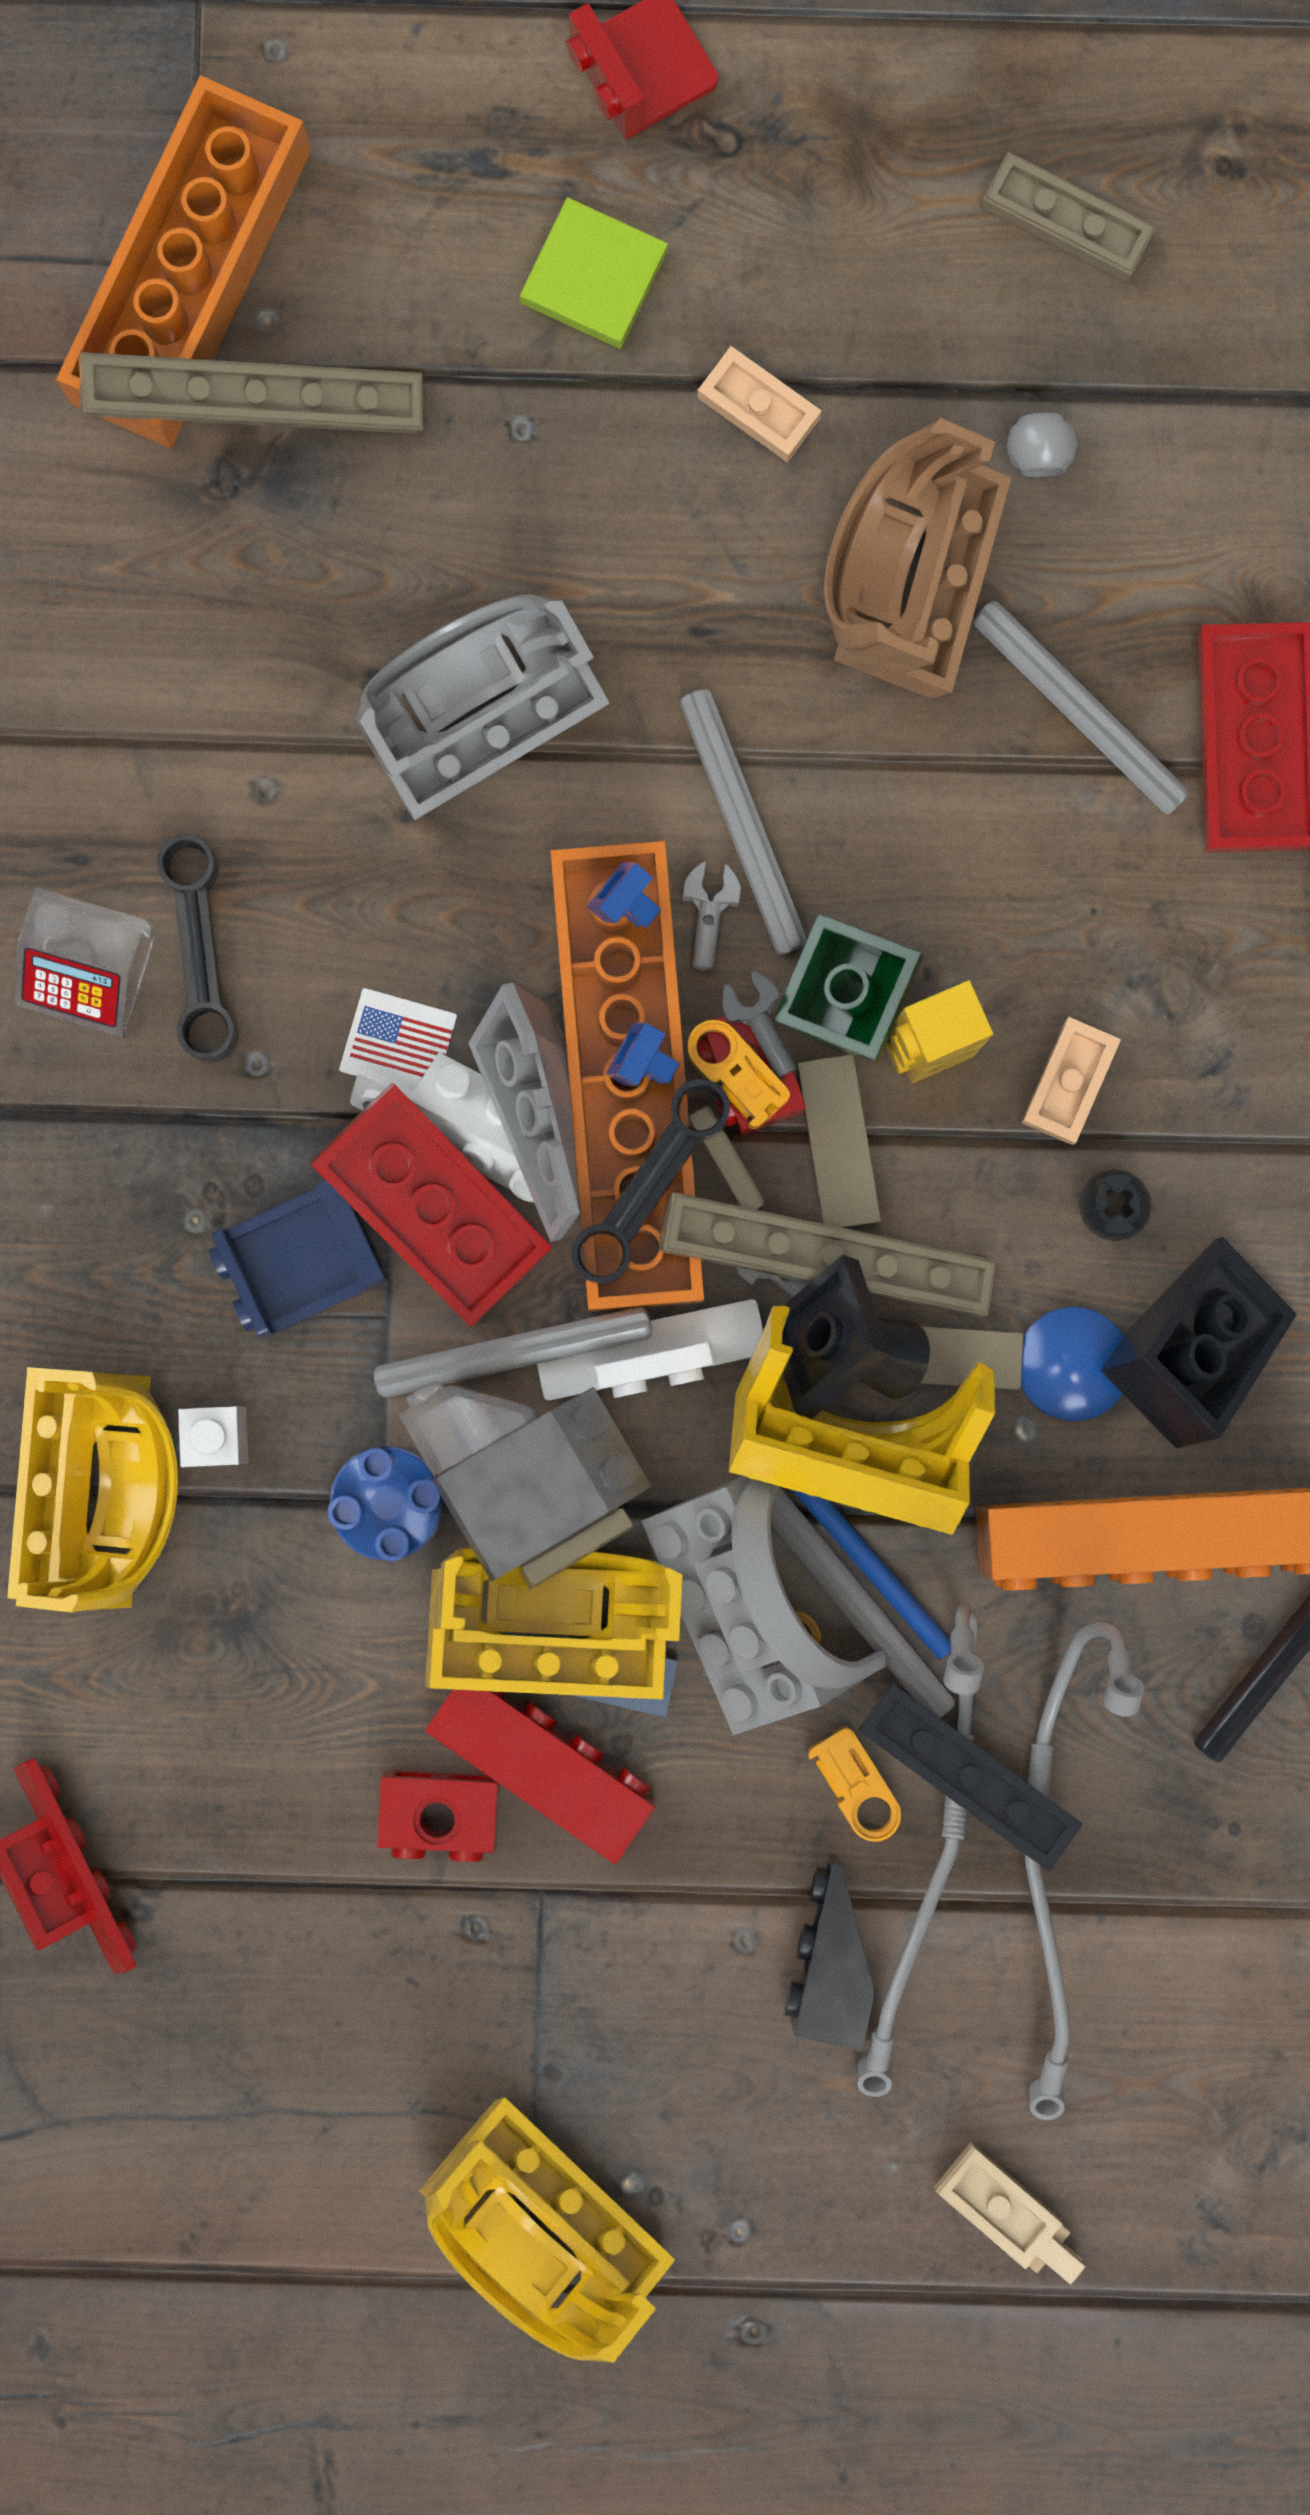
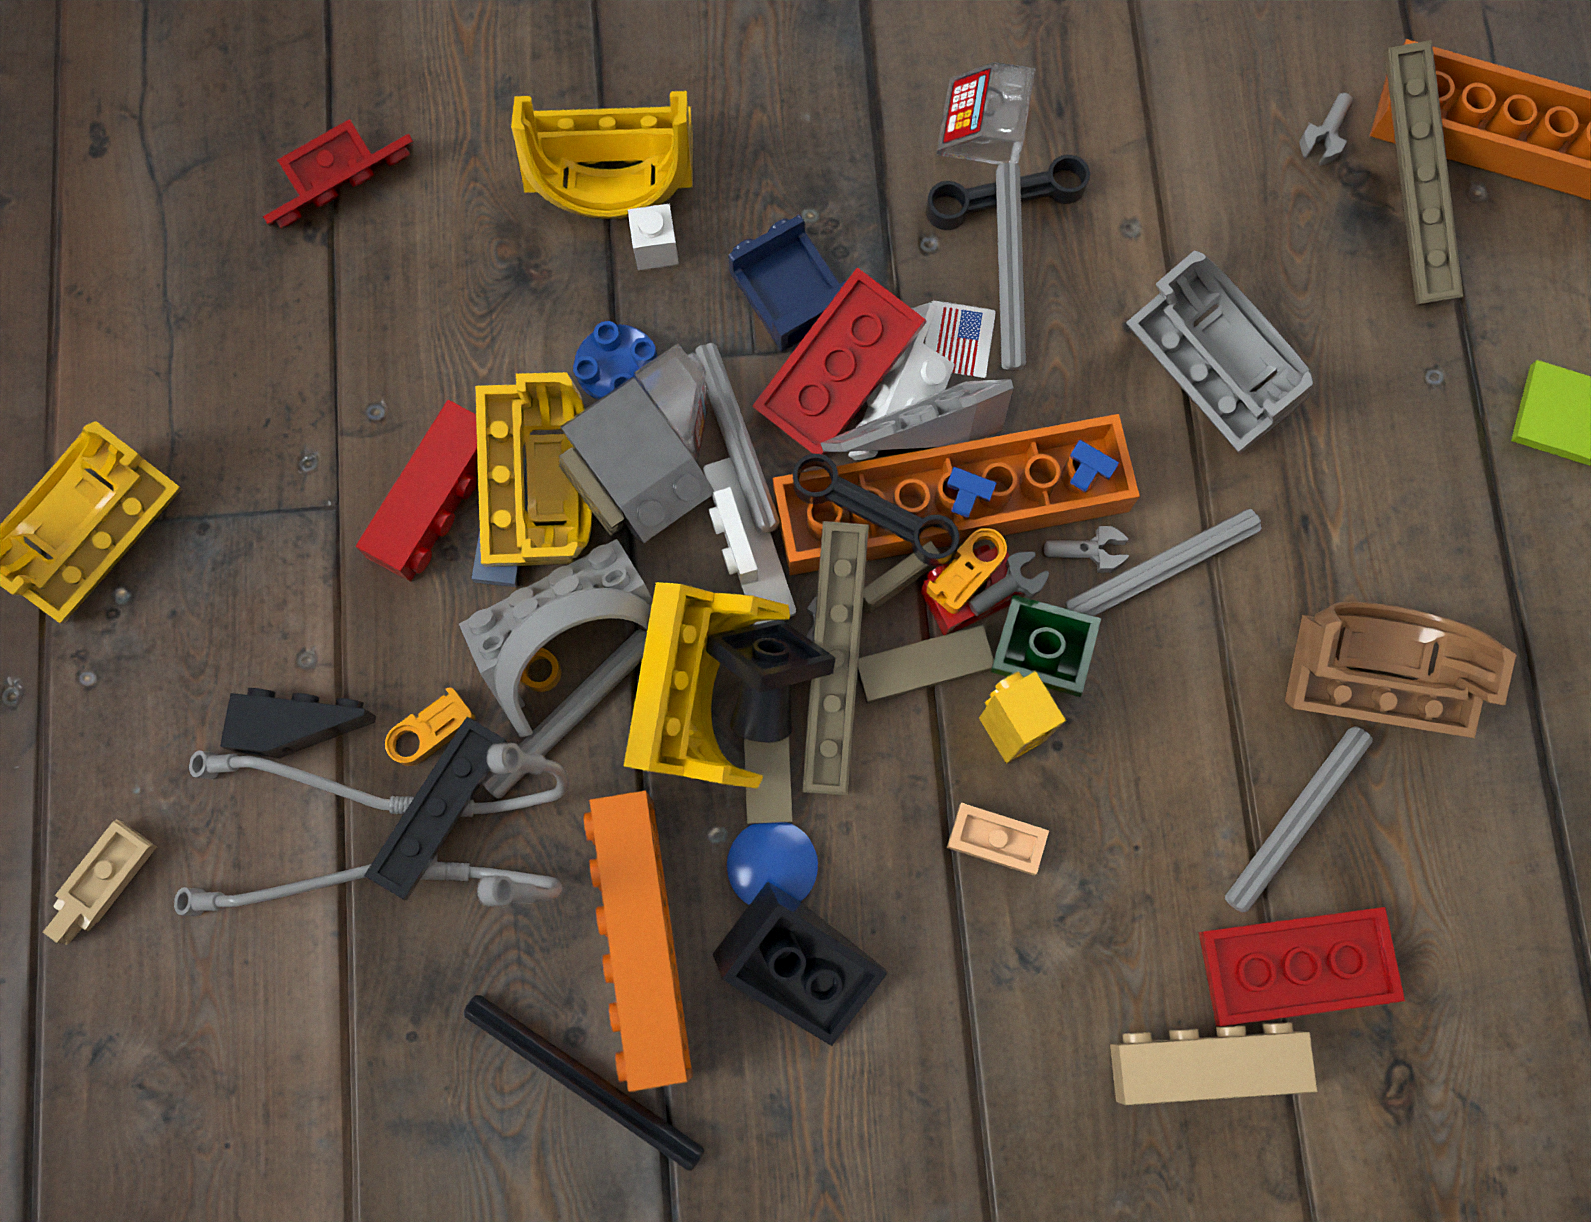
camera: 85 degrees right, 10 degrees down
(156, 502) = (1328, 131): none -> light grey bar
(311, 959) = (1010, 266): none -> light grey axle
(469, 1796) = (381, 398): red brick -> none
(759, 404) = (1491, 543): light nougat plate -> none
(878, 1573) = (590, 732): blue bar -> none
(1042, 445) = (1505, 763): light grey piece -> none
(1136, 1206) = (920, 883): black piece -> none

